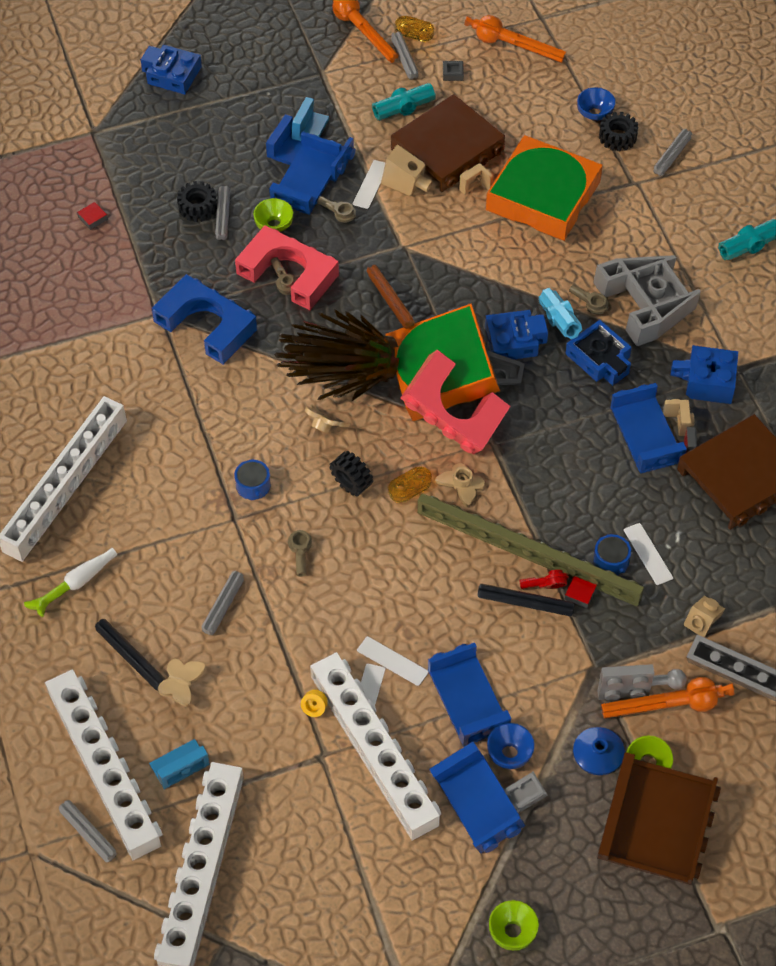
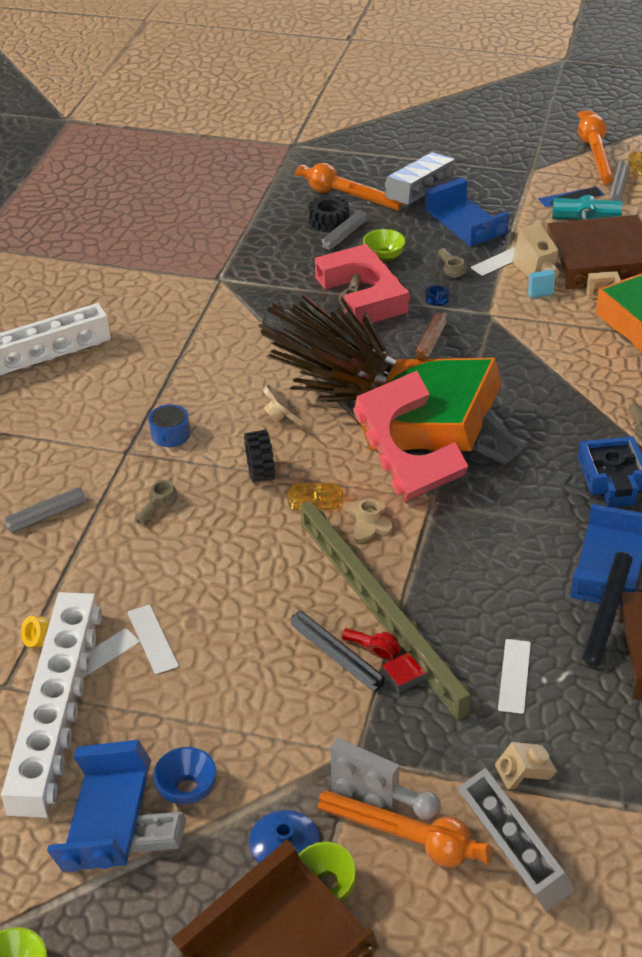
camera: 35 degrees right, 15 degrees down
(92, 215) = (232, 194): red tile -> none
(164, 164) = (324, 179): none -> orange piece
(170, 68) = (397, 122): blue piece -> none
(192, 296) = (248, 273): blue arch -> none
(247, 129) = (412, 181): none -> light grey brick
(307, 173) = (445, 230): blue panel -> none
(308, 121) = (480, 193): dark azure panel -> none
(350, 247) = (437, 295): none -> clear blue tile
(376, 88) = (593, 191): none -> sticker
(425, 198) = (541, 283): none -> medium azure tile
(466, 693) = (194, 702): blue panel -> none
(516, 333) = (537, 418): blue piece -> none
(560, 313) = (595, 416): medium azure piece -> none
(612, 553) = (468, 652): piece -> none
(679, 473) = (607, 609): none -> black axle

